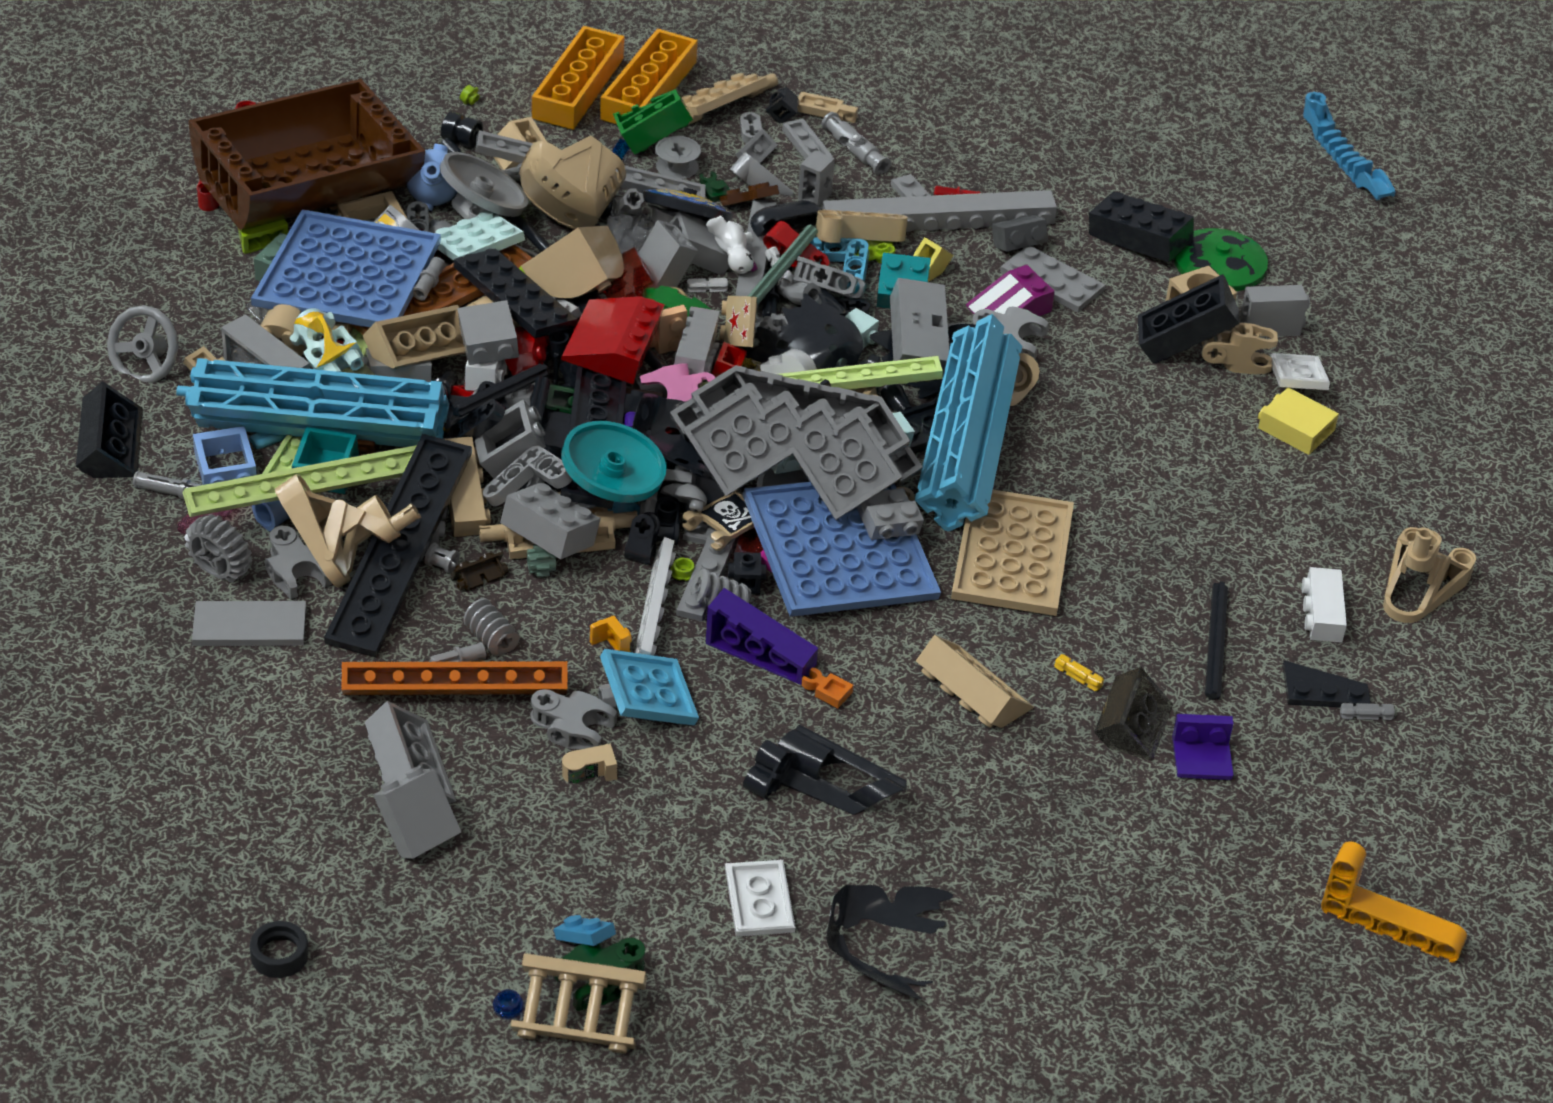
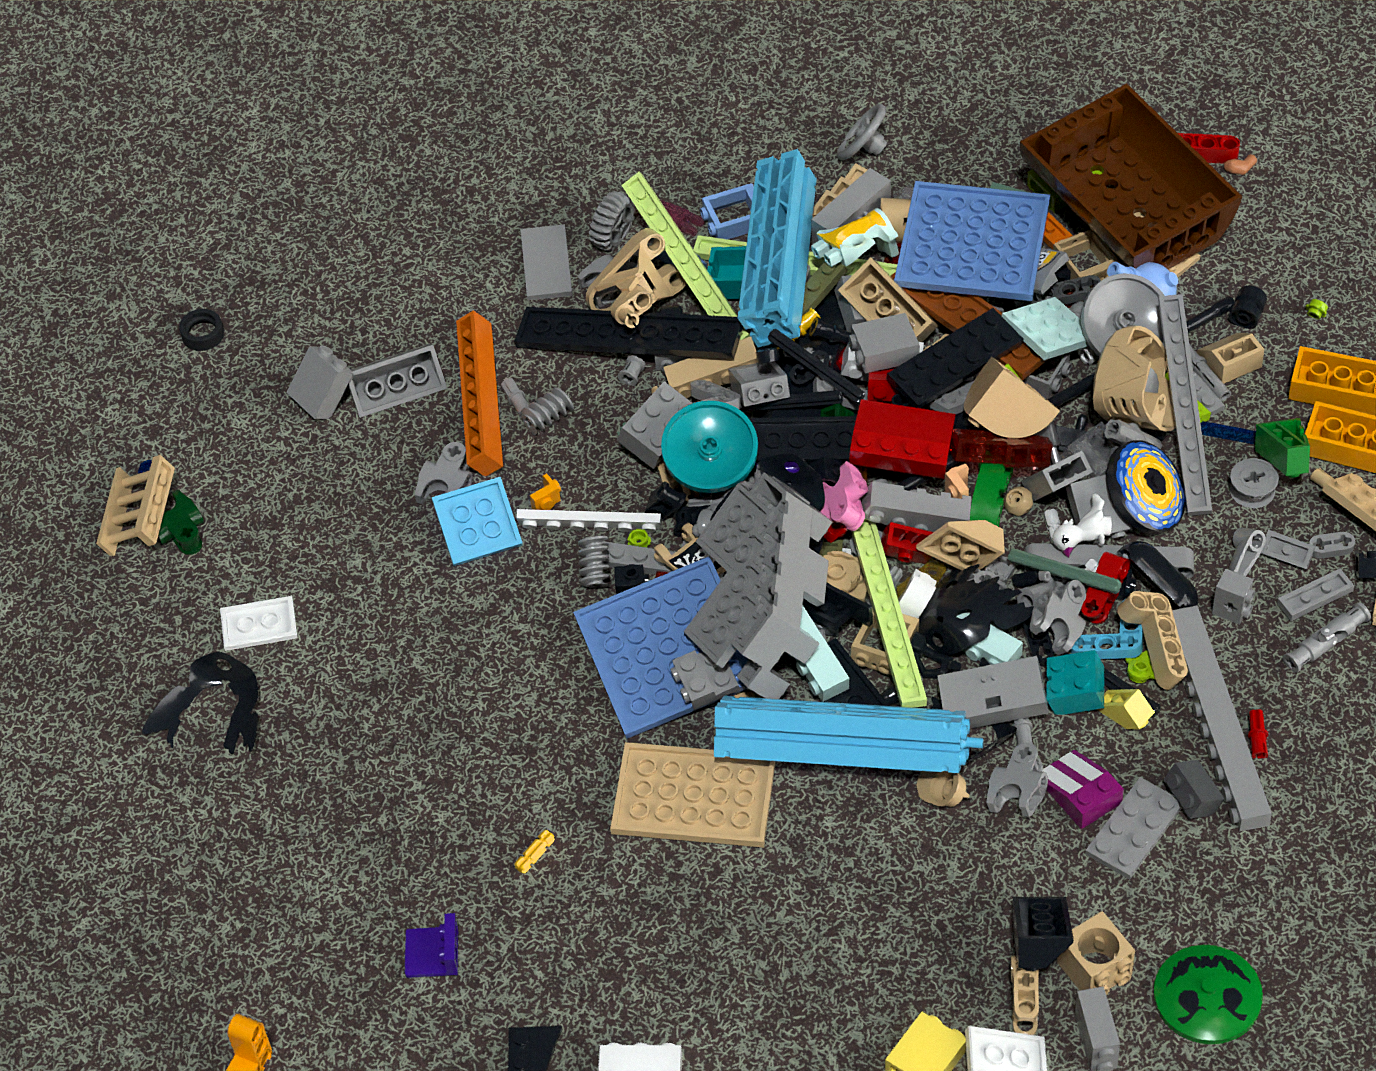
camera: 95 degrees right, 10 degrees up
(108, 434) = (754, 137): black slope -> none
(161, 484) = (701, 182): light grey pin -> none
(429, 278) = (970, 297): light grey pin -> none
(487, 565) = (614, 391): dark brown hinge -> none
(584, 930) = (209, 504): dark azure plate -> none
(589, 763) = (394, 489): tan leg -> none
(713, 188) = (1215, 523): dark green plate -> none
(754, 192) = (1200, 548): reddish brown plate -> none
(757, 638) = (543, 595): dark purple wedge -> none
(797, 764) = (403, 636): black panel -> none
(828, 689) = (497, 657): orange plate -> none
(908, 186) = (1257, 694): light grey plate -> none
(972, 683) = (510, 765): tan slope -> none
(1134, 715) = (473, 893): clear smoke slope -> none
(1141, 226) = (1228, 903): black brick -> none
(1216, 641) = (588, 968): black axle -> none

